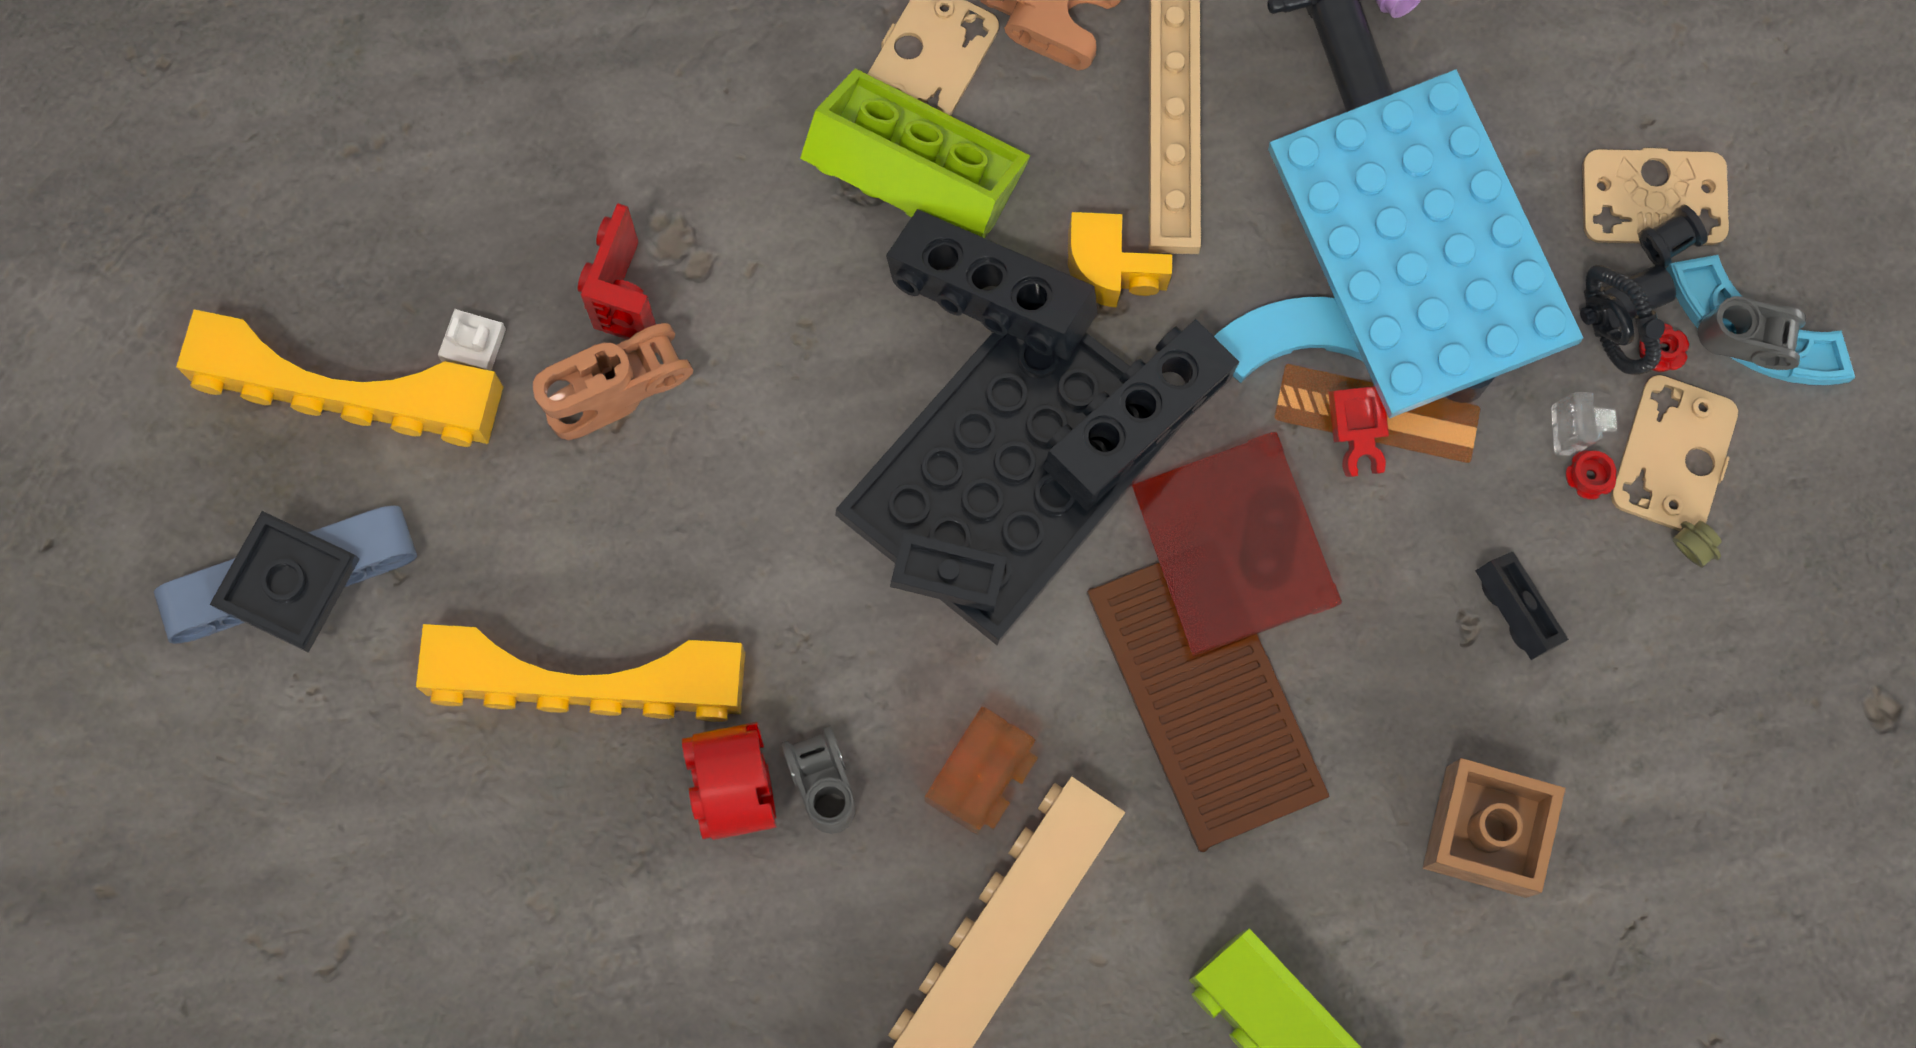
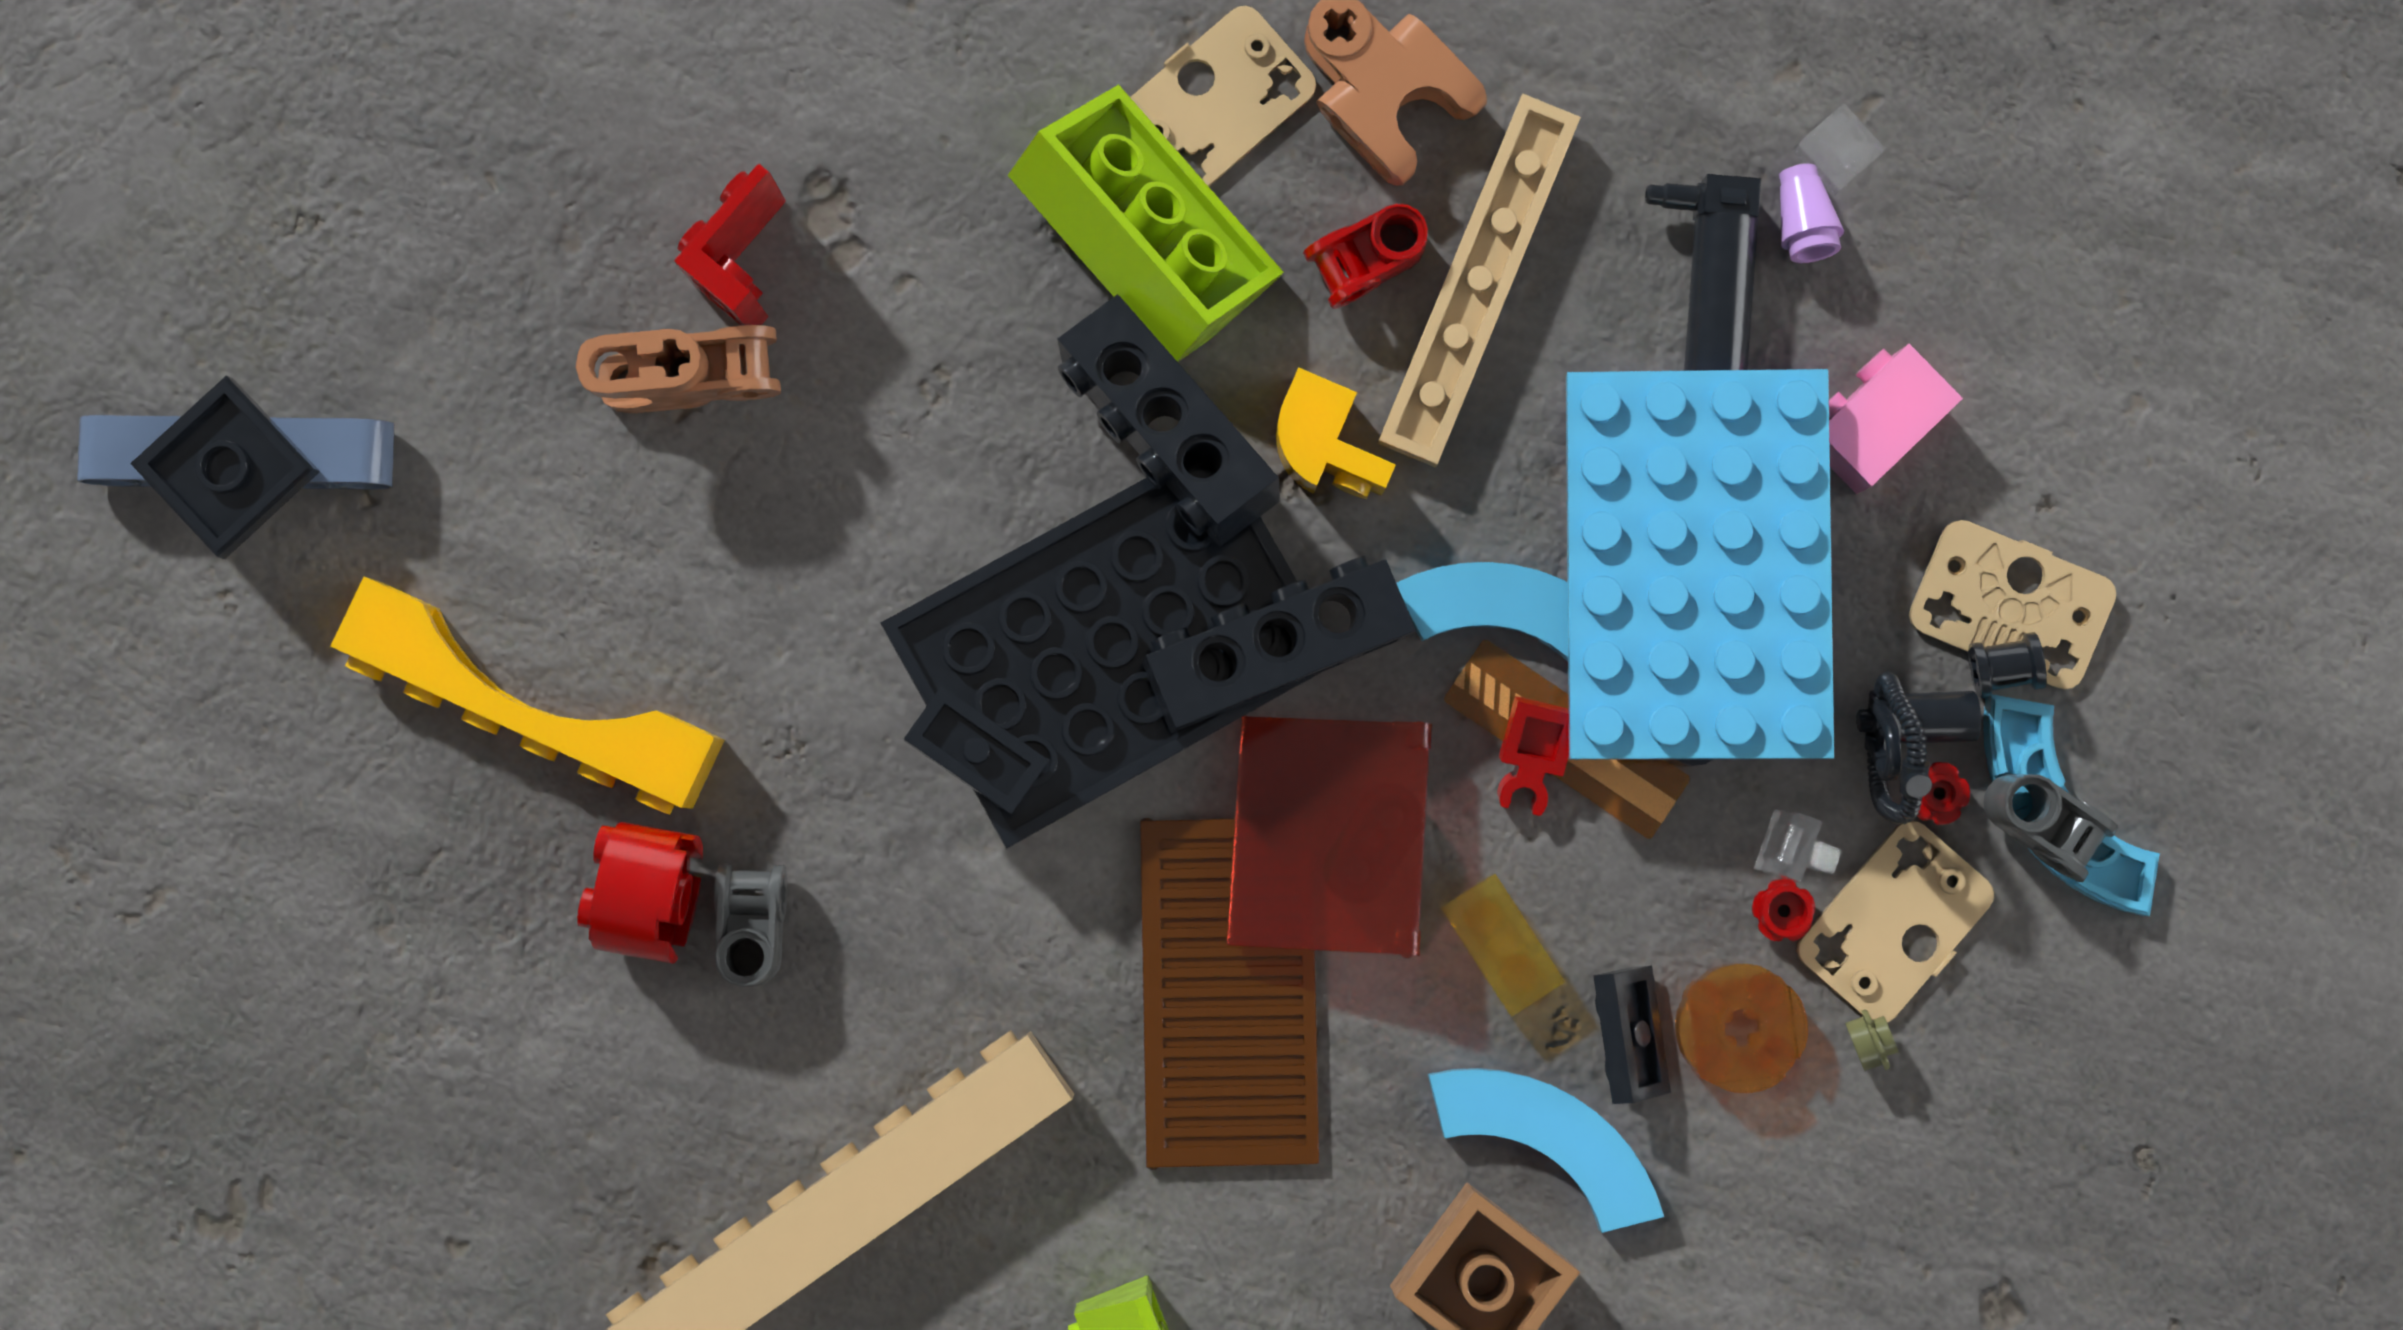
camera: 20 degrees right, 10 degrees up
(441, 400) = (274, 172): yellow arch -> none
(472, 340) = (547, 252): white tile -> none
(981, 770) = (932, 985): clear orange brick -> none
(1081, 124) = (1364, 254): none -> red piece
(1396, 577) = (1502, 944): none -> clear yellow plate
(1498, 698) = (1558, 1126): none -> medium azure tile
(1510, 93) = (1885, 415): none -> bright pink brick
(1604, 542) = (1769, 1050): none -> clear orange plate

